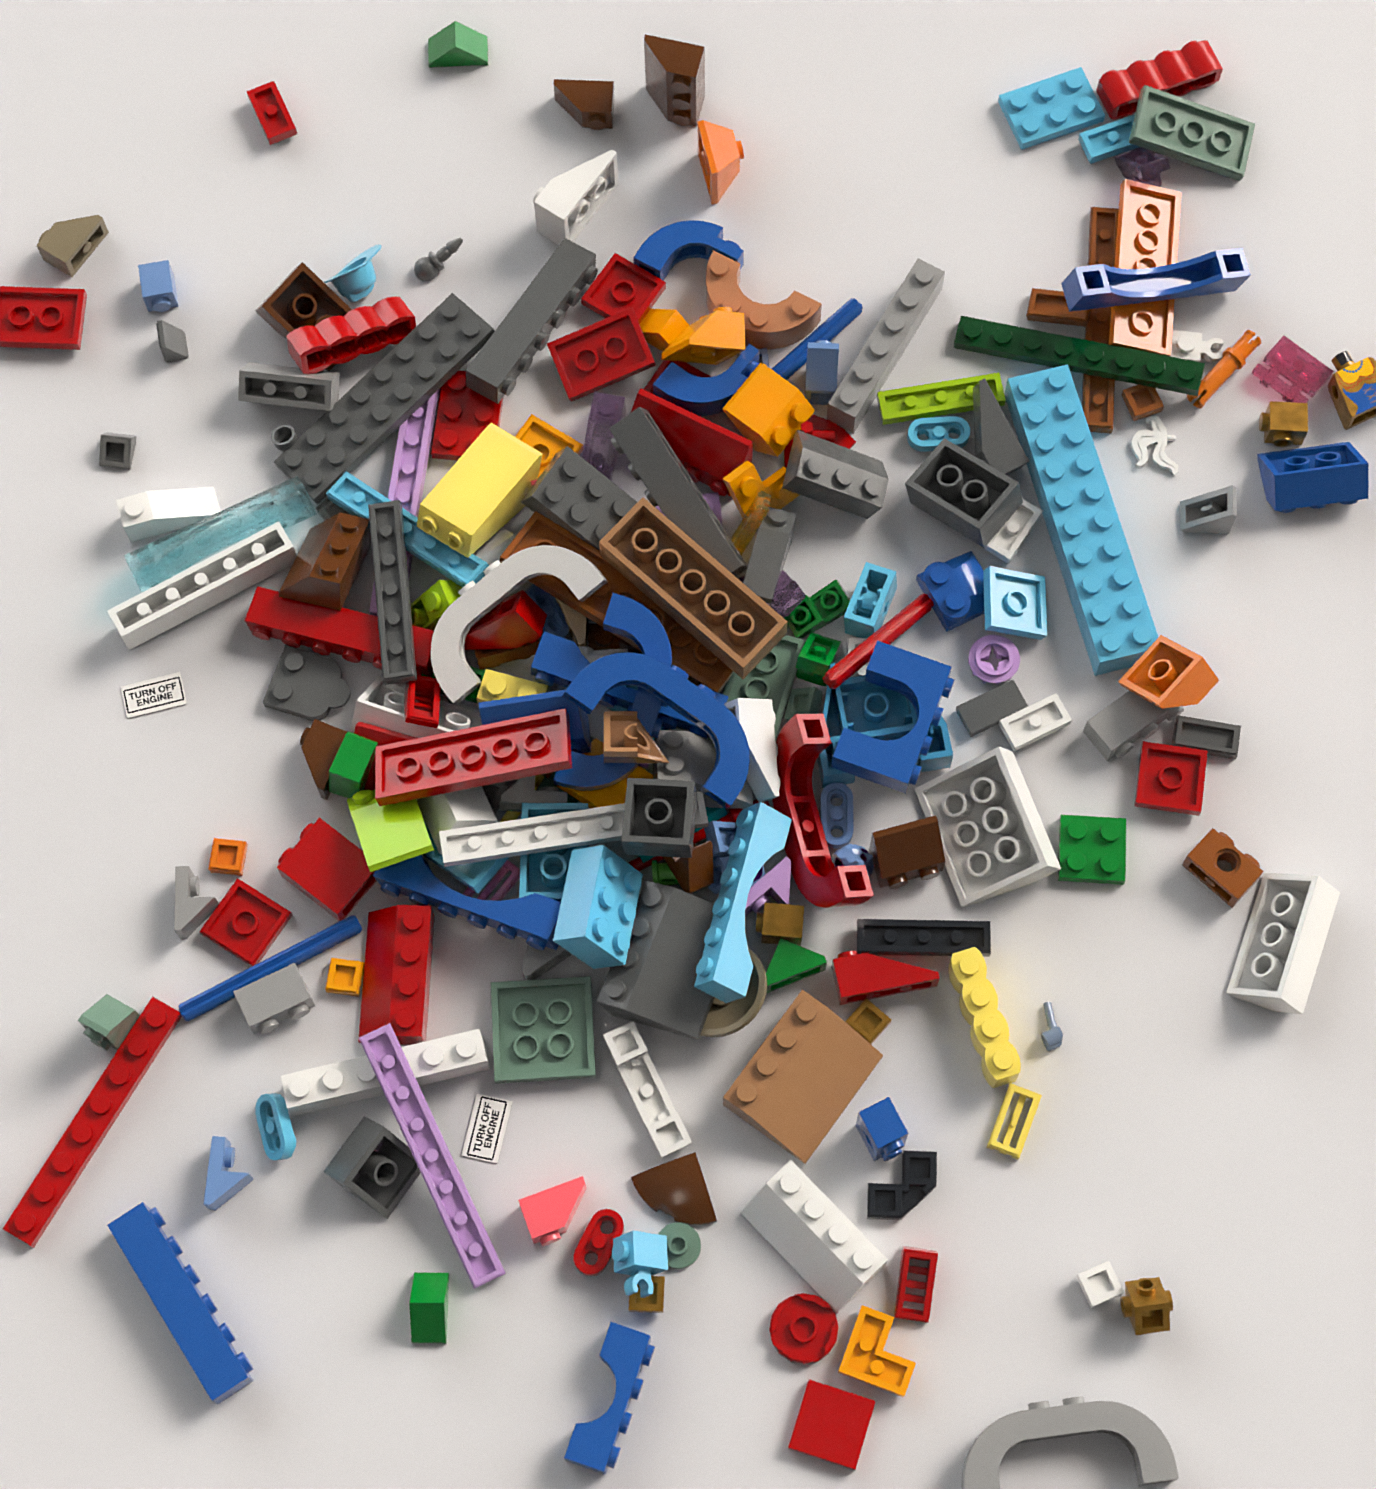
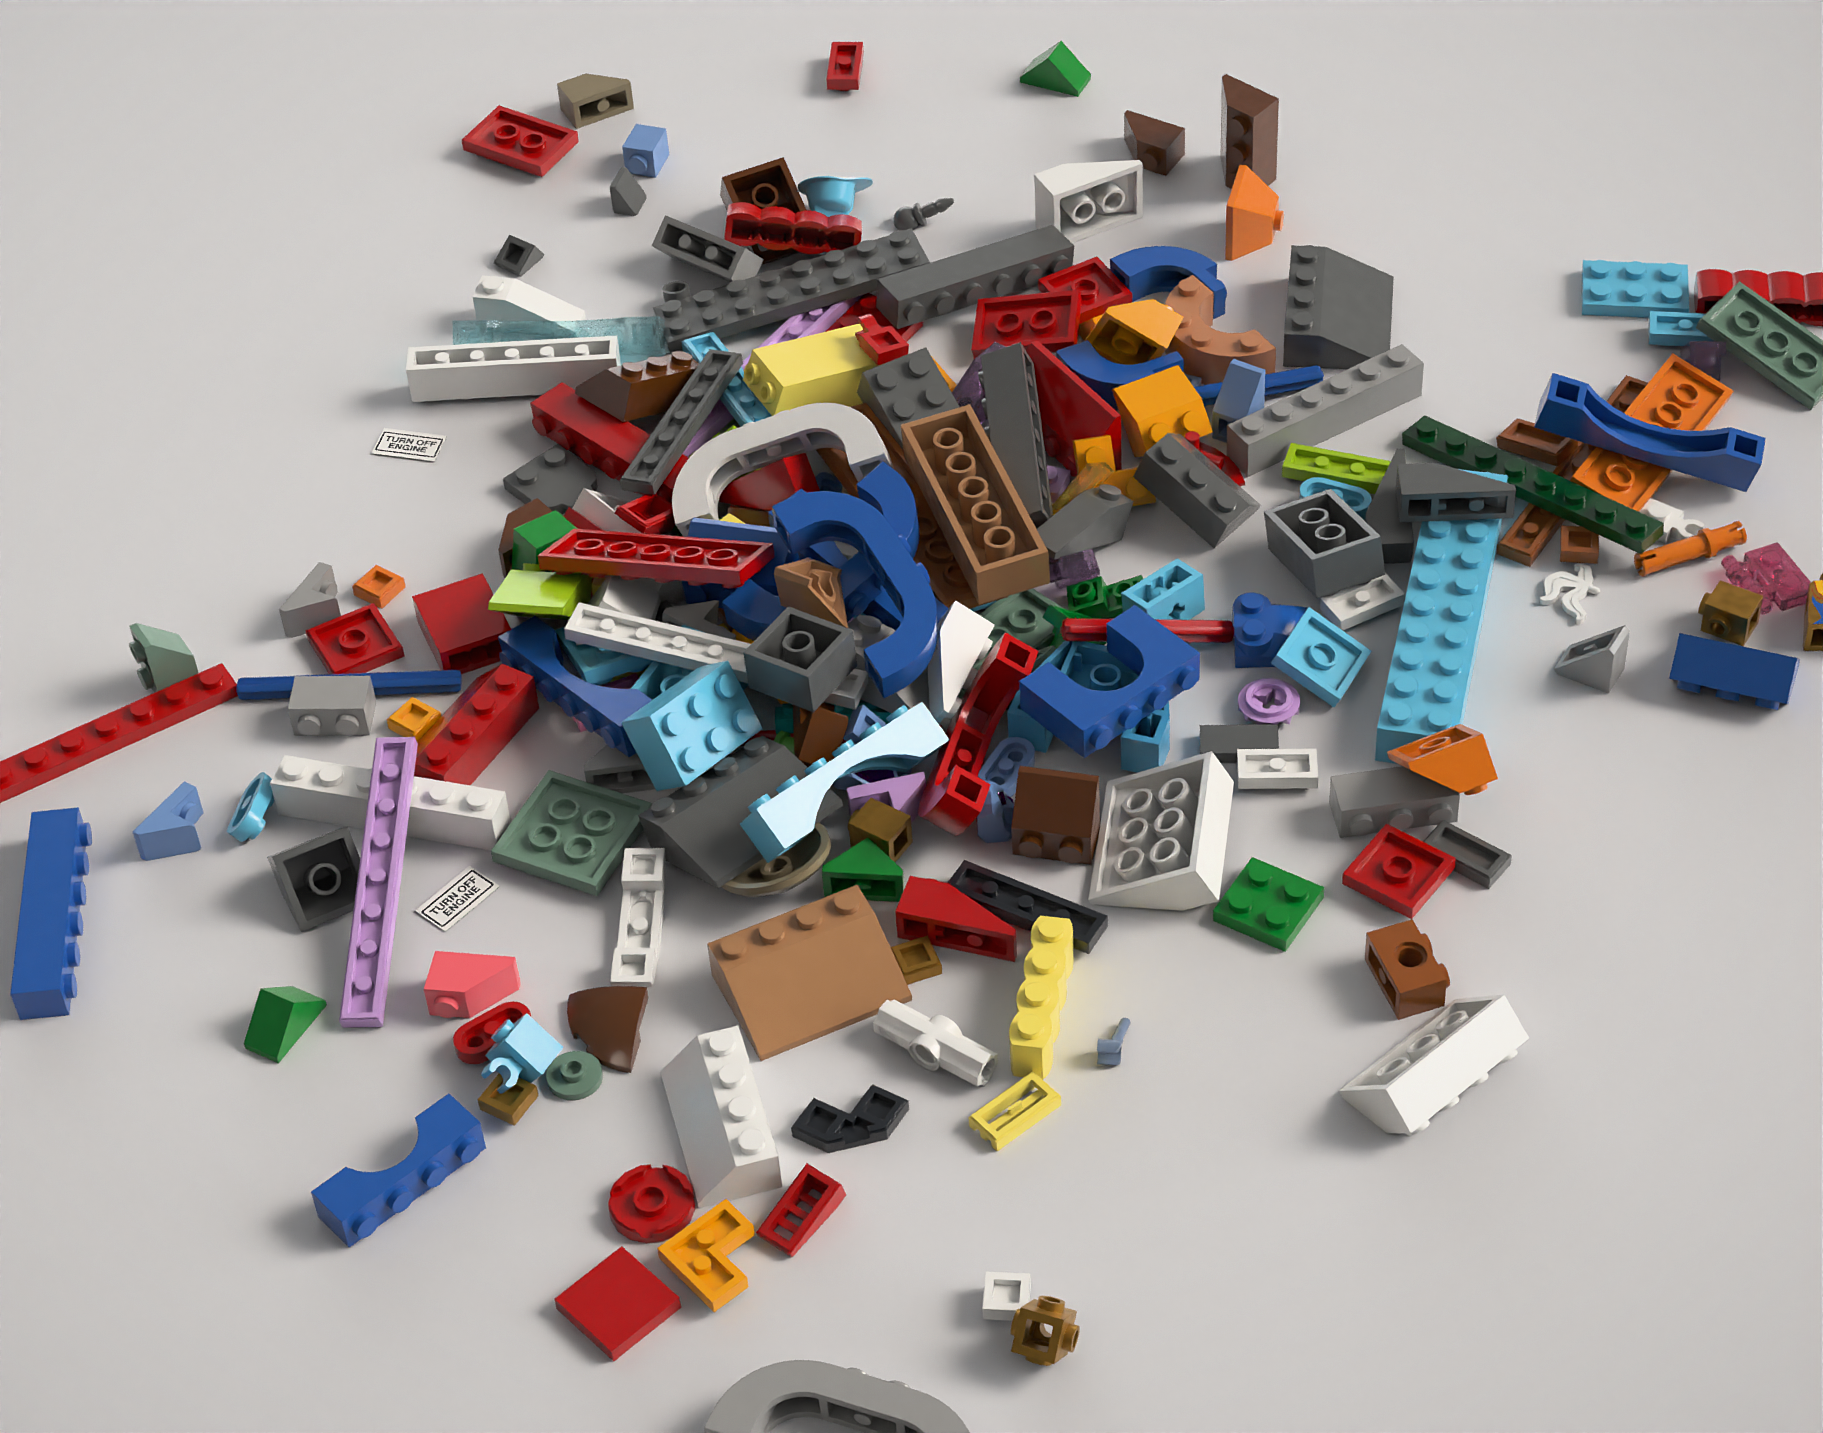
camera: 30 degrees right, 25 degrees down
(521, 452) = (880, 343): none -> red plate
(836, 233) = (1335, 310): none -> dark grey slope
(882, 1130) = (856, 1041): blue brick -> none
(929, 1093) = (935, 1042): none -> white piece
(1041, 414) = (1449, 494): none -> dark grey slope

